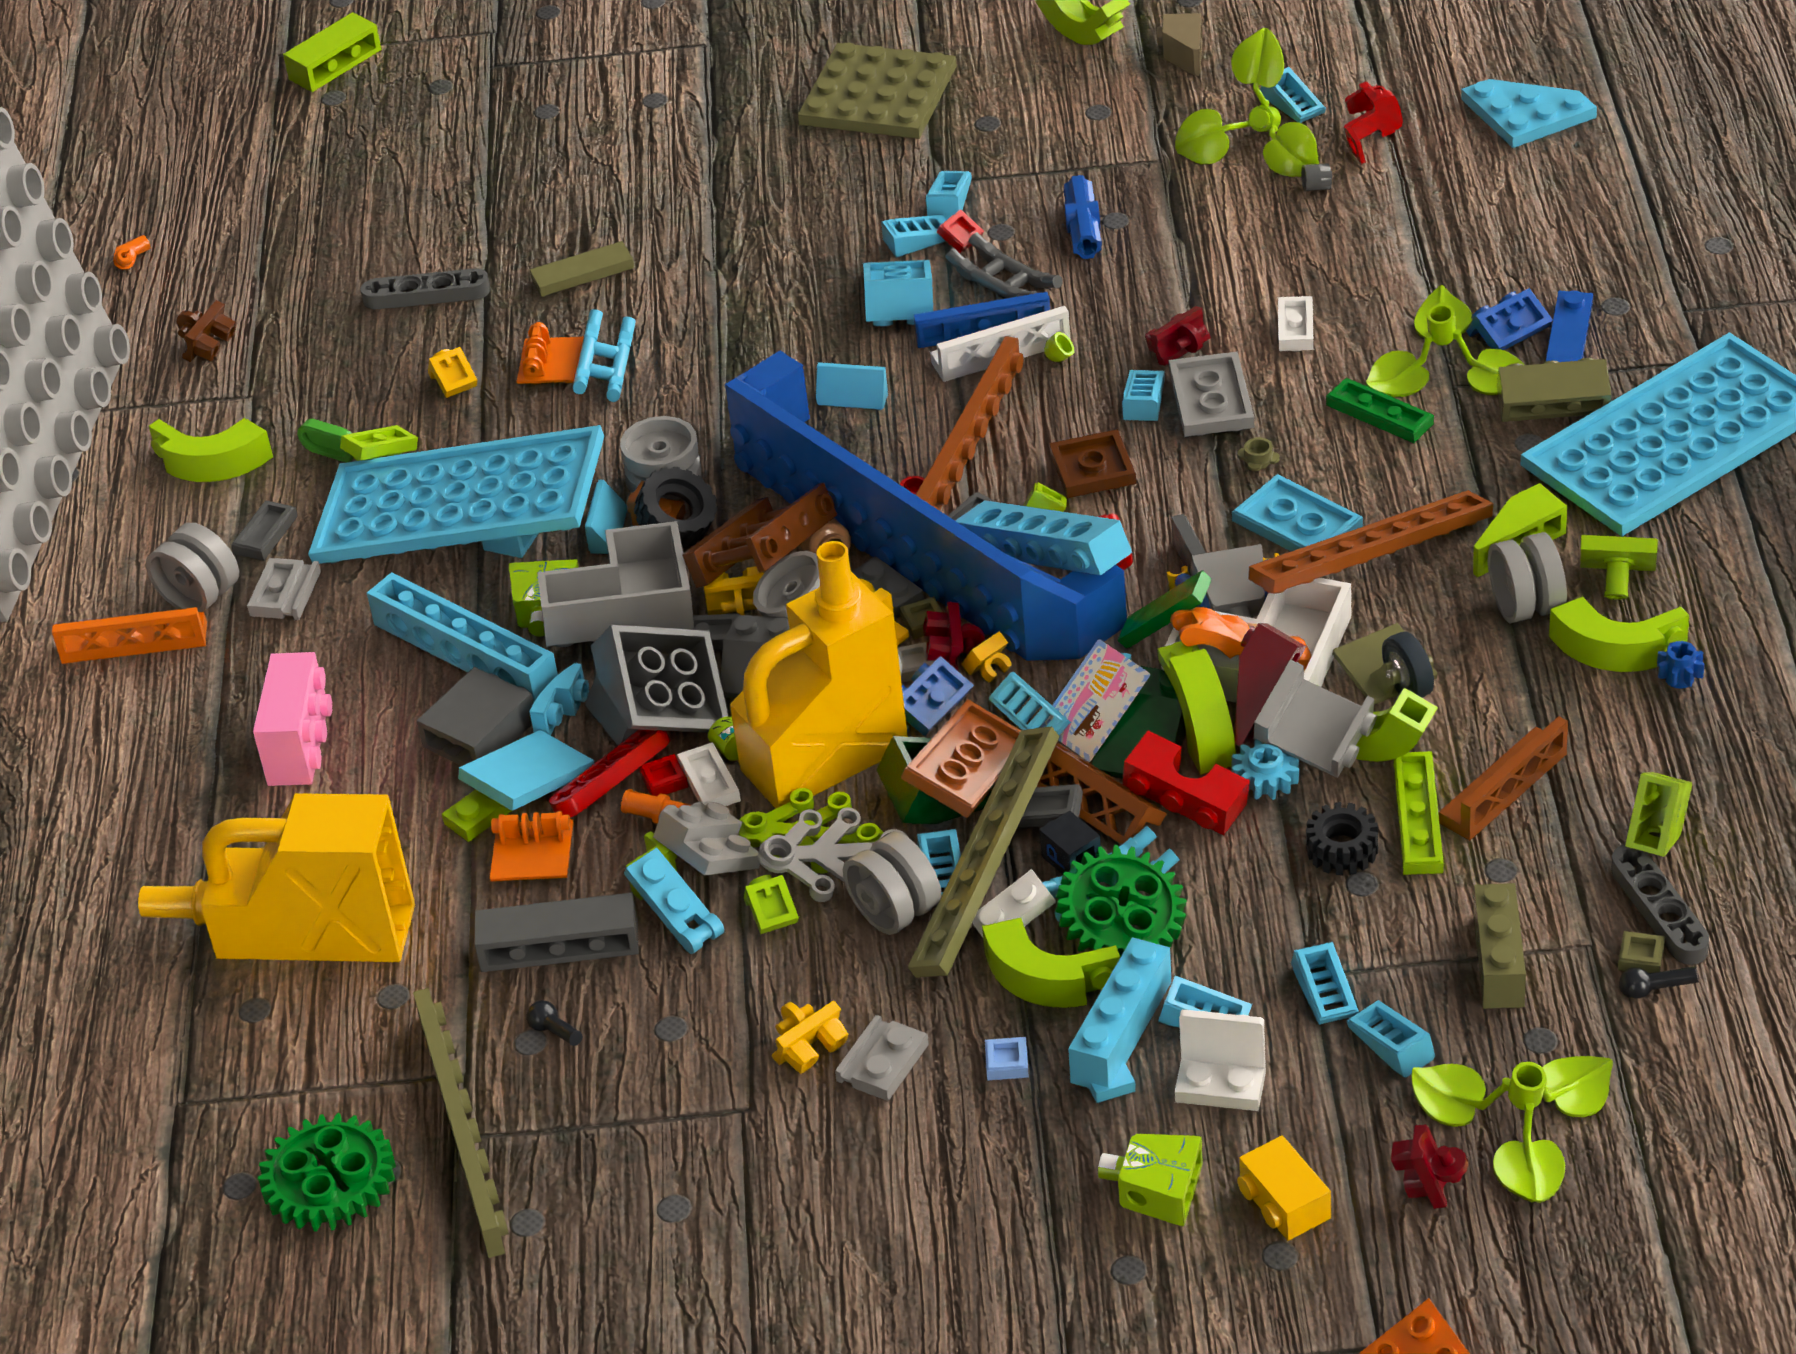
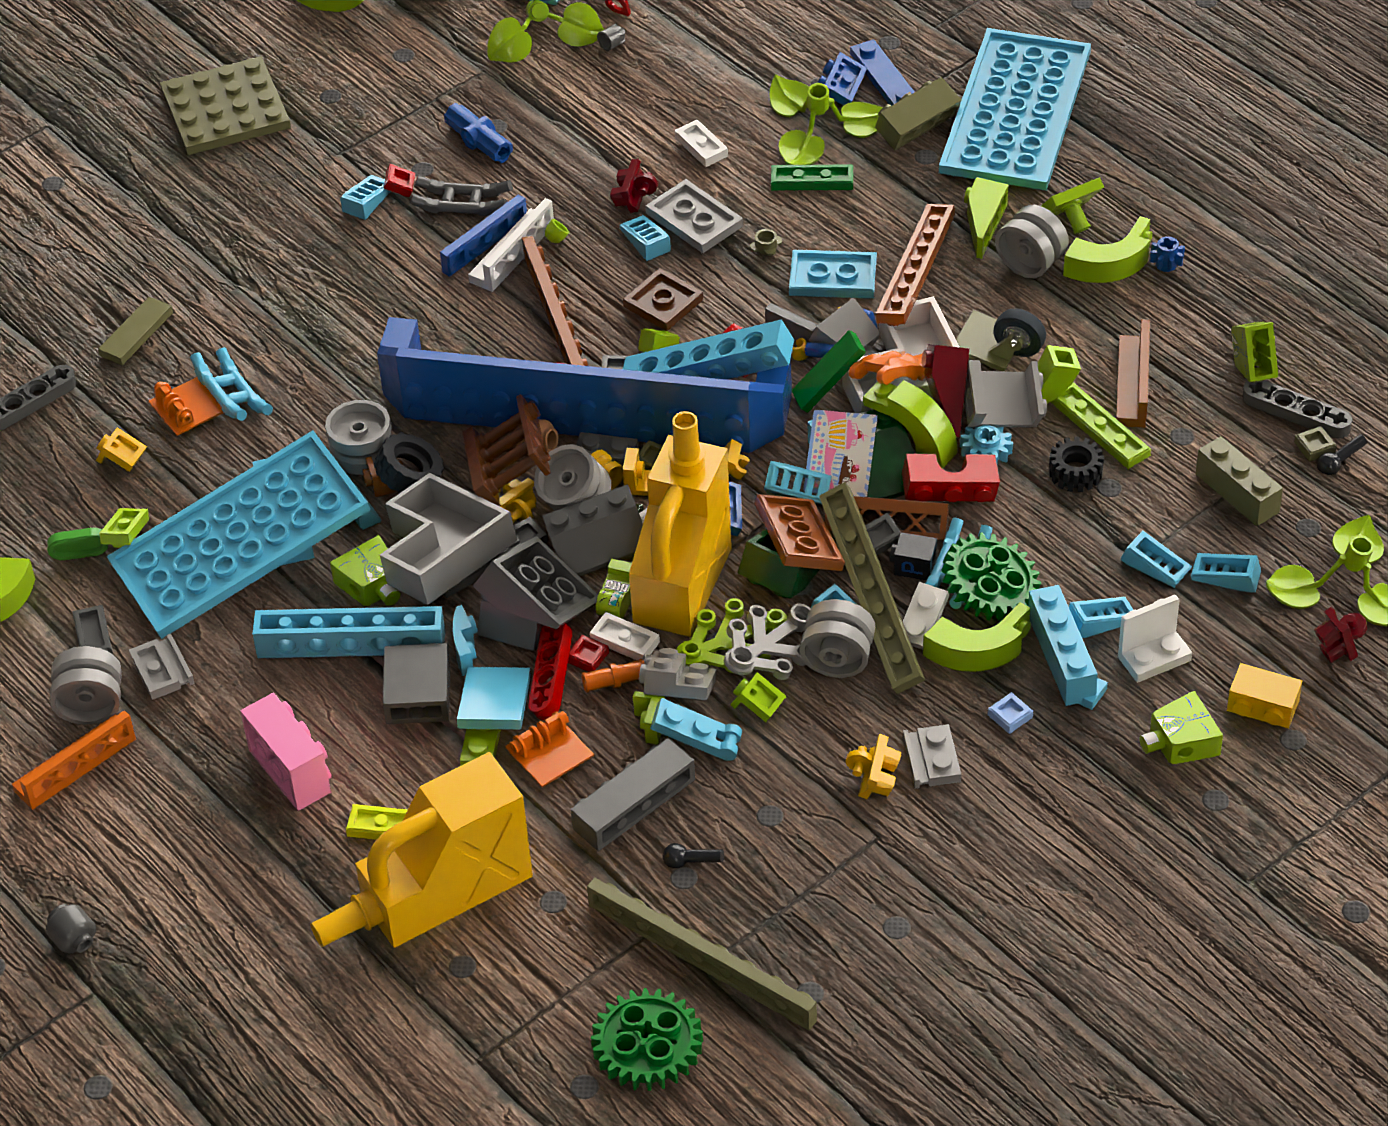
camera: 40 degrees left, 5 degrees up
(851, 386) = (440, 322): medium azure slope -> none
(897, 291) = (401, 240): medium azure slope -> none
(948, 193) = (360, 158): medium azure slope -> none

